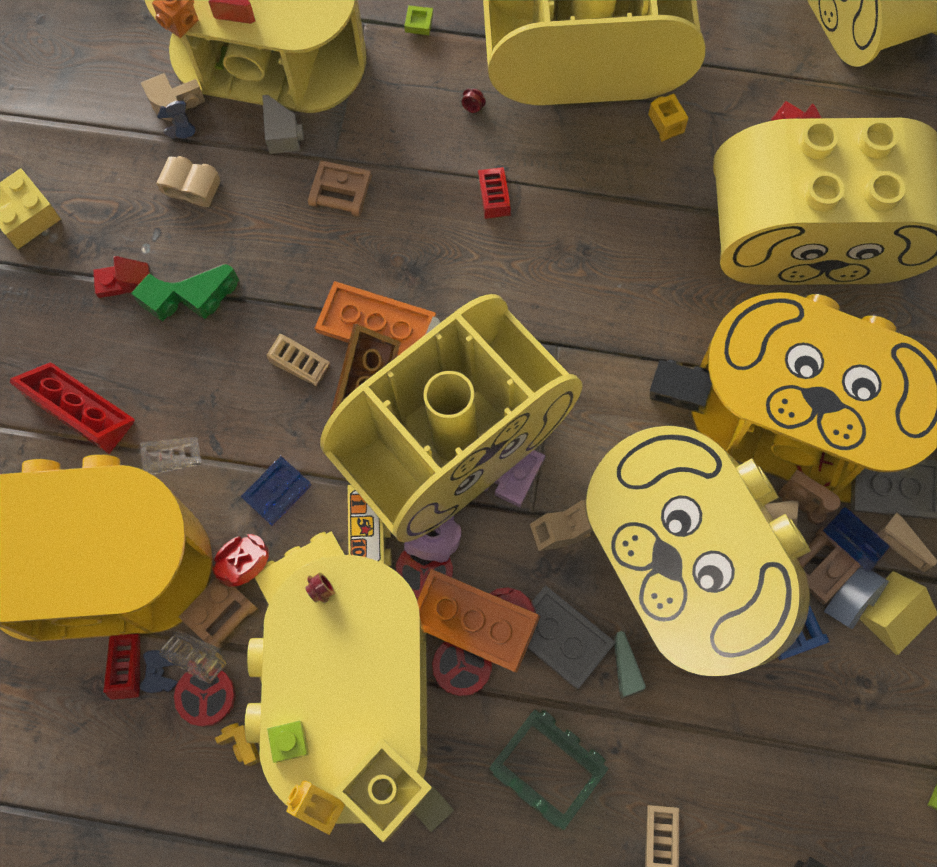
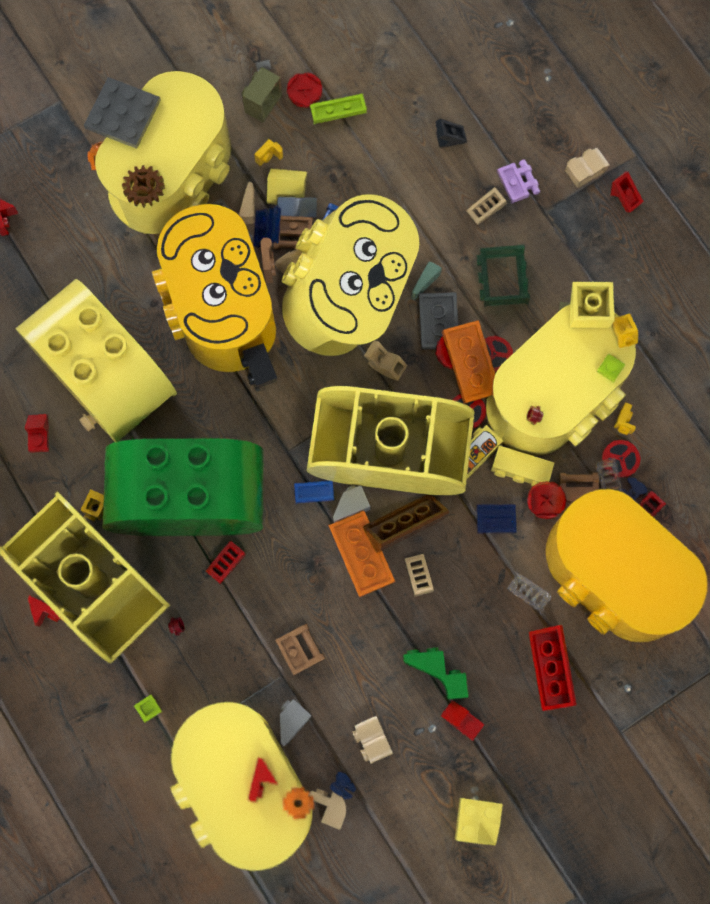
camera: 135 degrees left, 5 degrees up
(600, 178) = (183, 487): none -> green brick

